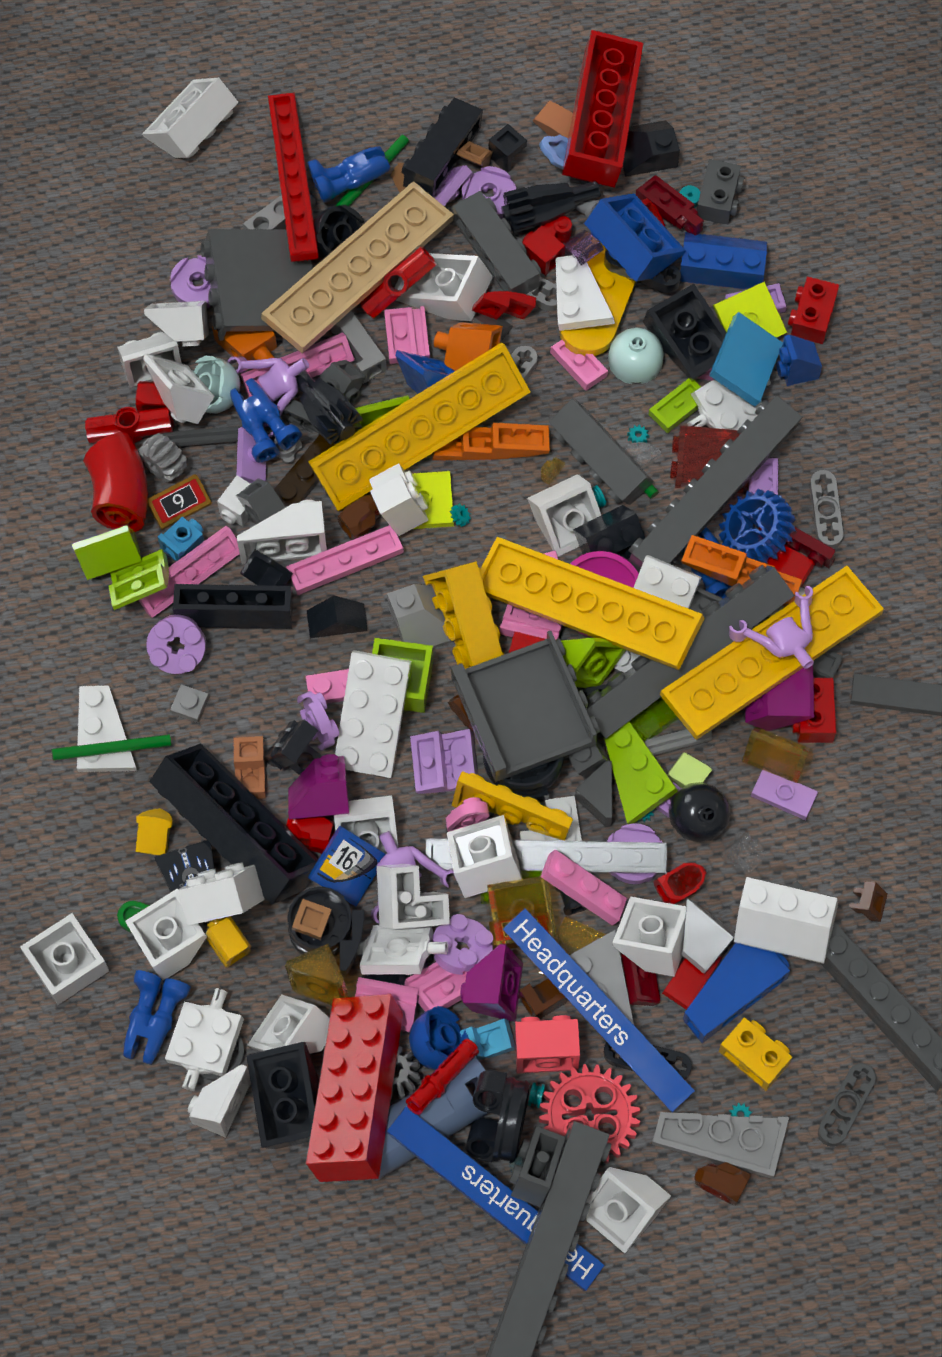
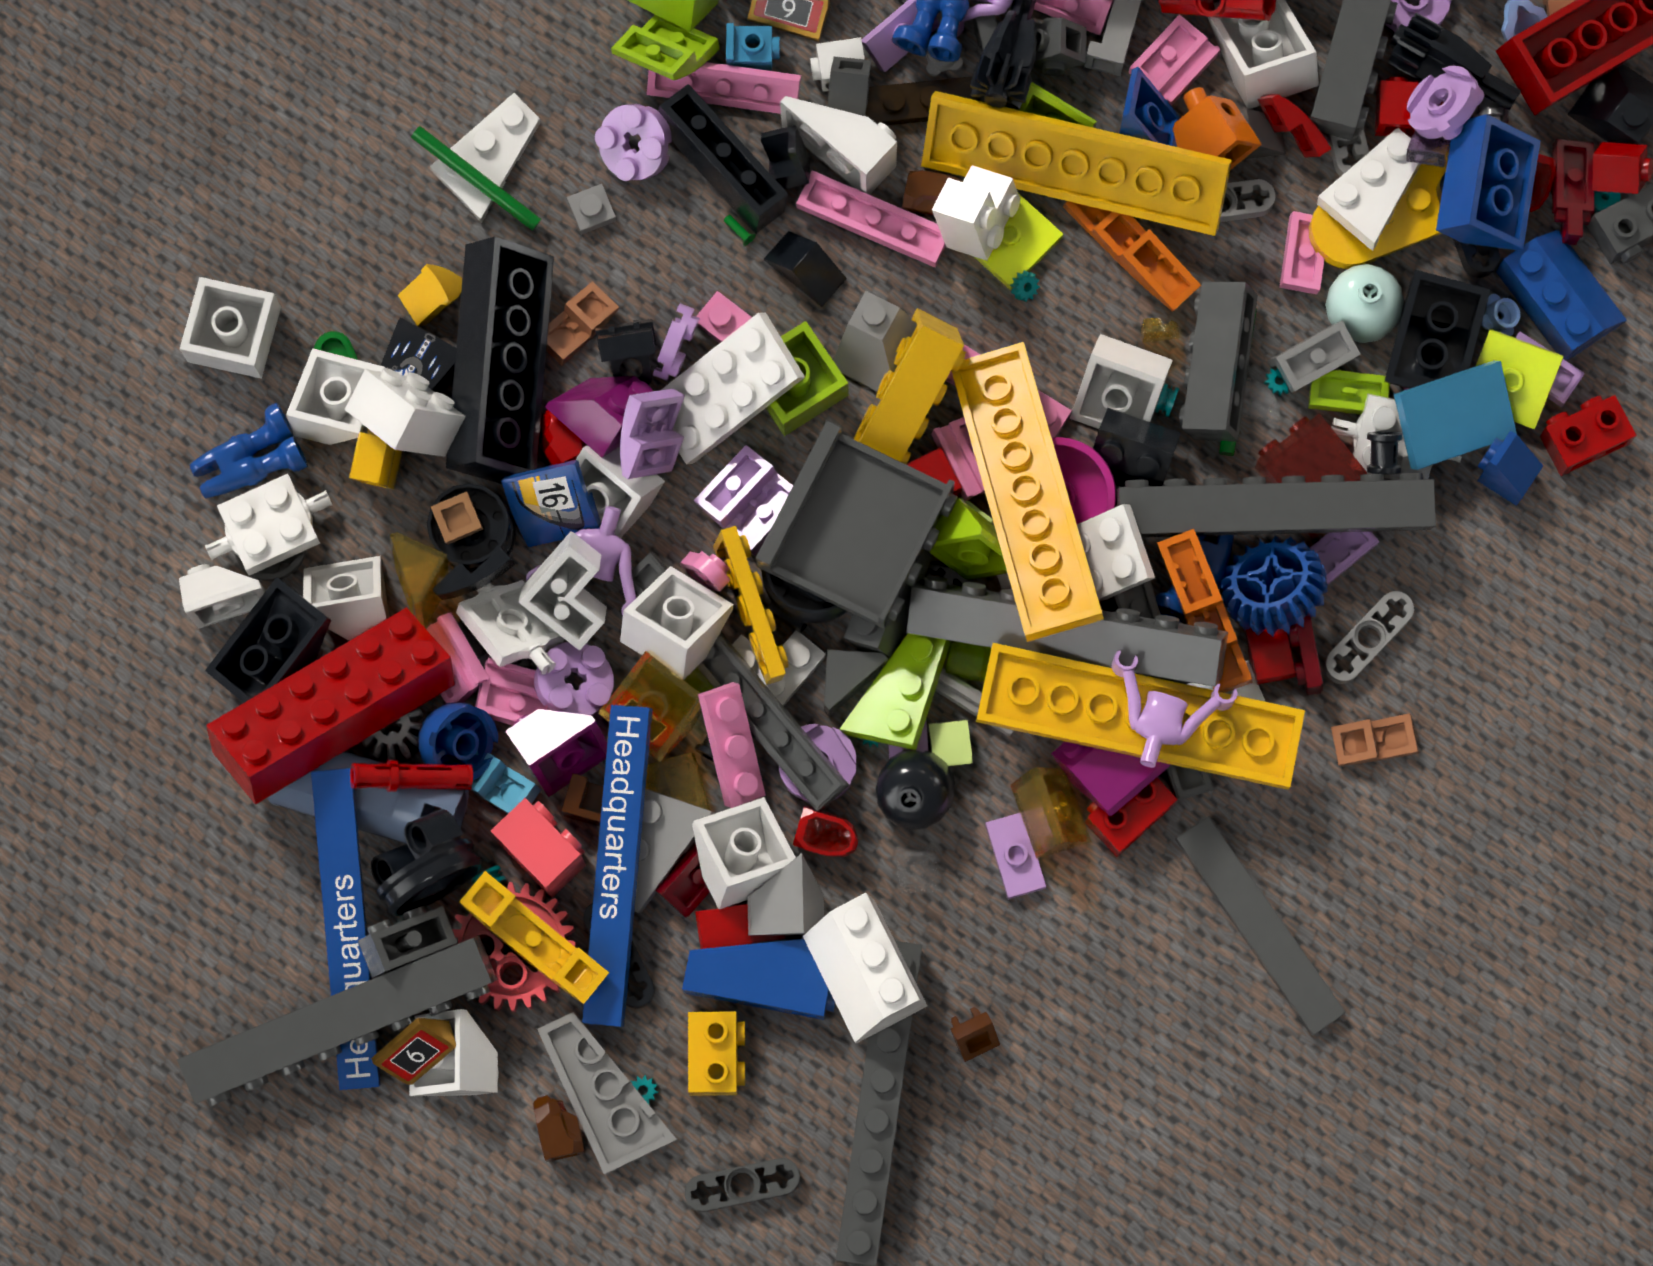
camera: 50 degrees right, 10 degrees up
(280, 636) = (739, 230): none -> green piece
(362, 779) = (647, 433): none -> lavender slope
(581, 222) = (1460, 98): none -> lavender plate
(602, 1093) = (533, 938): none -> yellow slope
(606, 1219) = (416, 1049): none -> slope
(643, 402) = (1315, 356): none -> light grey panel
(685, 170) = (1621, 167): none -> red brick
(710, 294) = (1507, 309): none -> light blue plate
(734, 410) = (1384, 452): none -> black bush
(887, 554) = (1374, 740): none -> nougat slope

